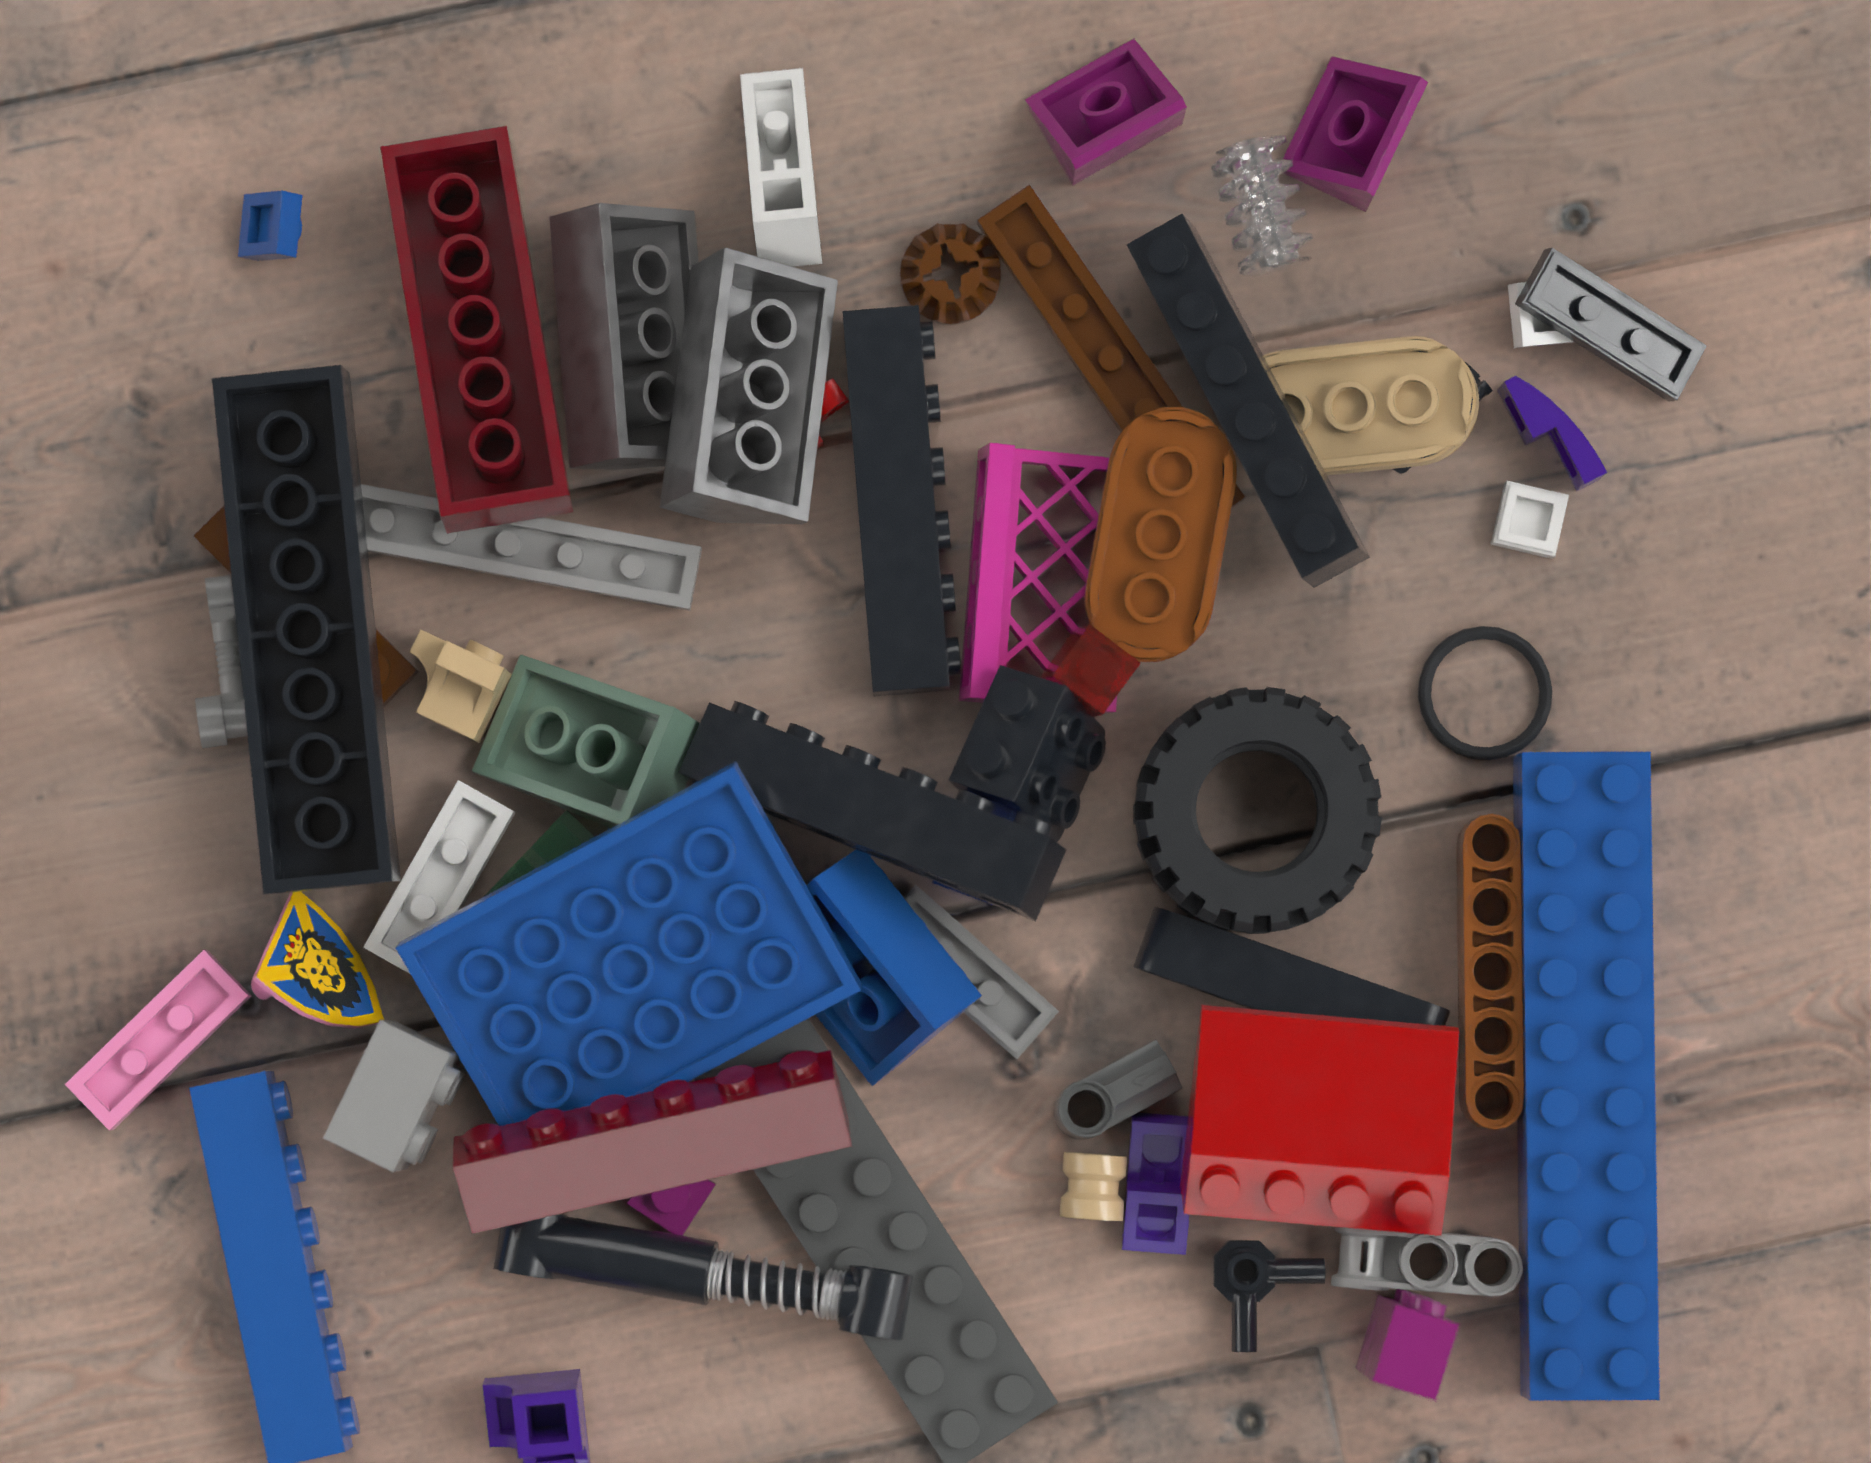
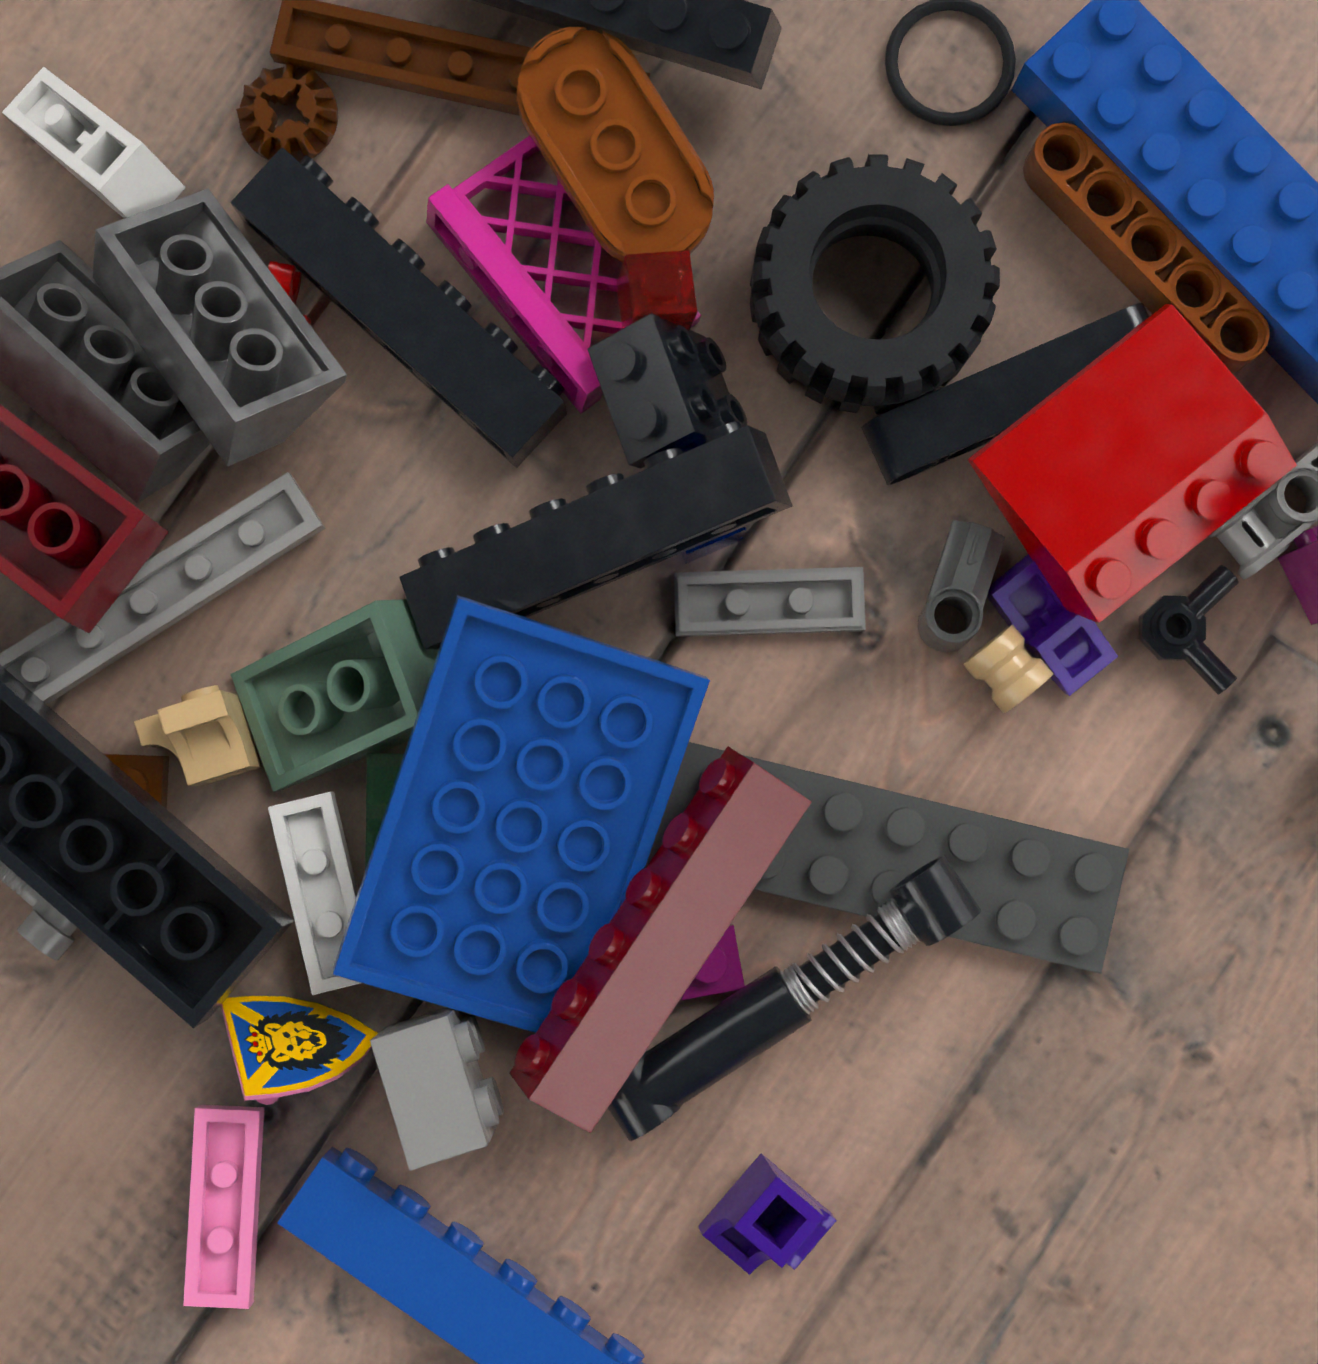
camera: 45 degrees left, 0 degrees up
(904, 971) = (729, 638): blue slope -> none

